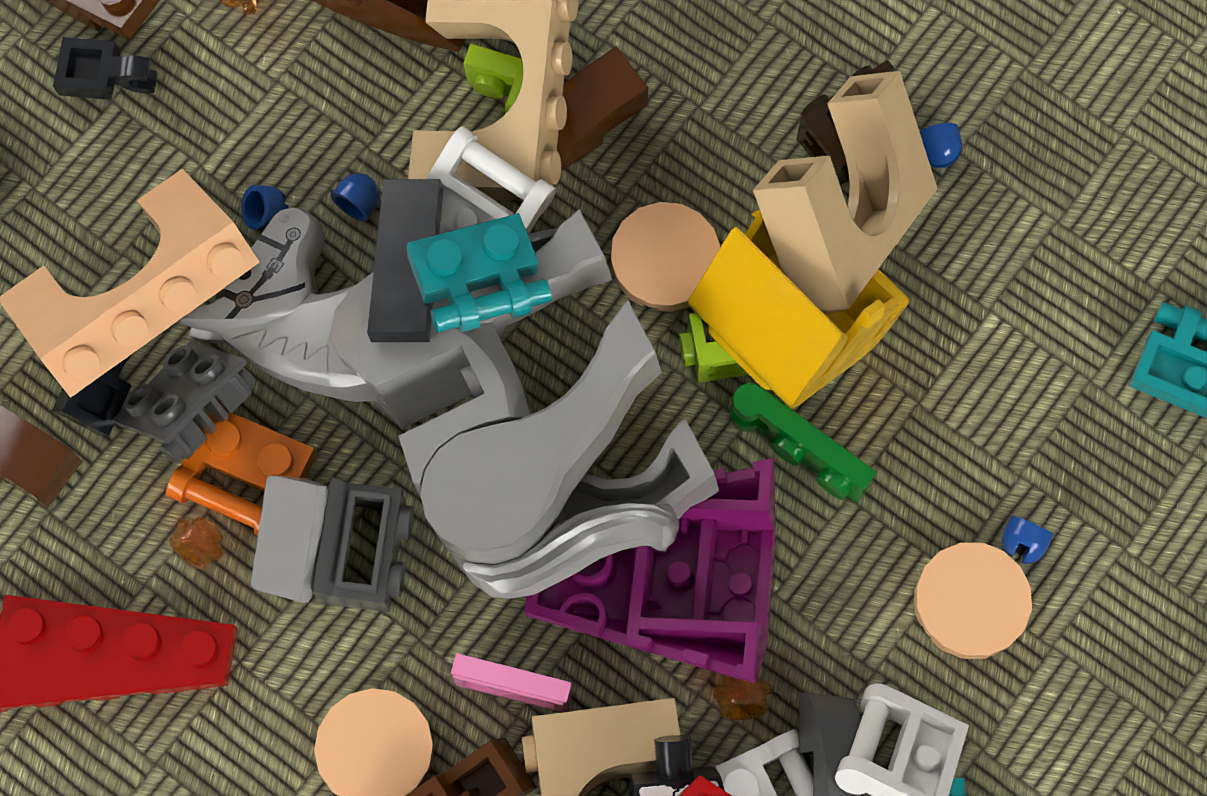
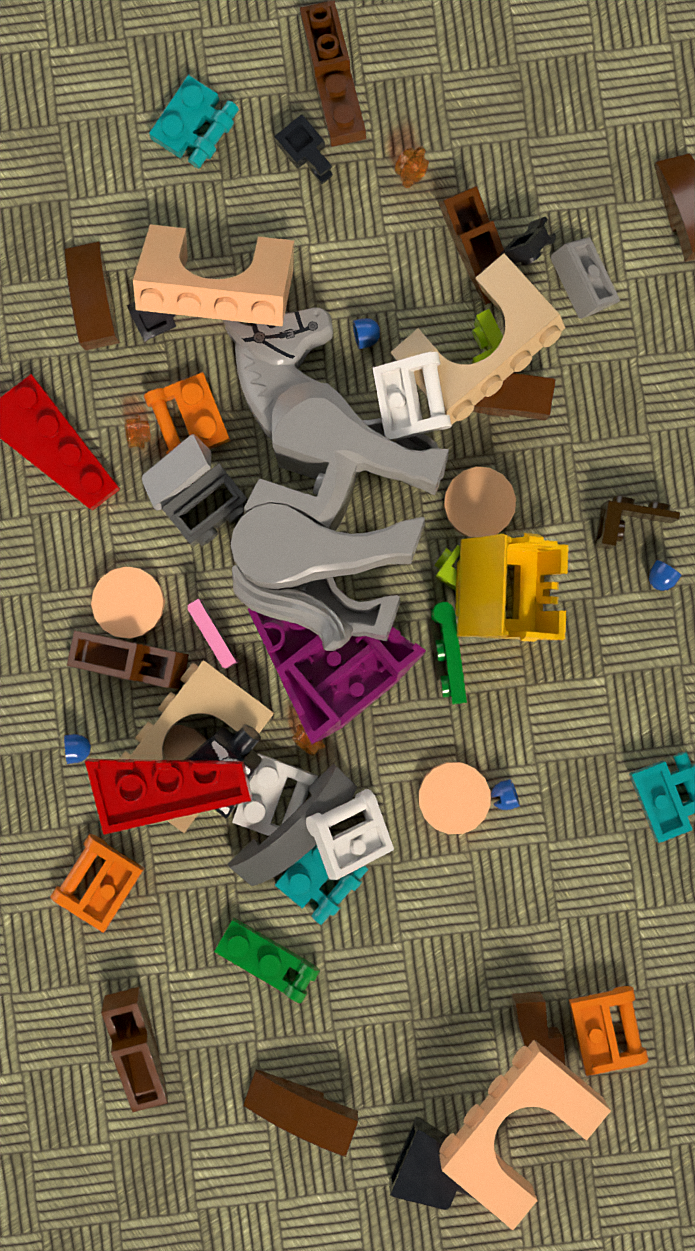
camera: 50 degrees right, 15 degrees up
(174, 399) = (191, 354): dark grey hinge -> none
(261, 204) = (316, 295): blue hinge -> none
(407, 213) = (344, 395): black tile -> none
(475, 259) = (373, 427): teal plate -> none
(817, 238) = (543, 573): tan arch -> none

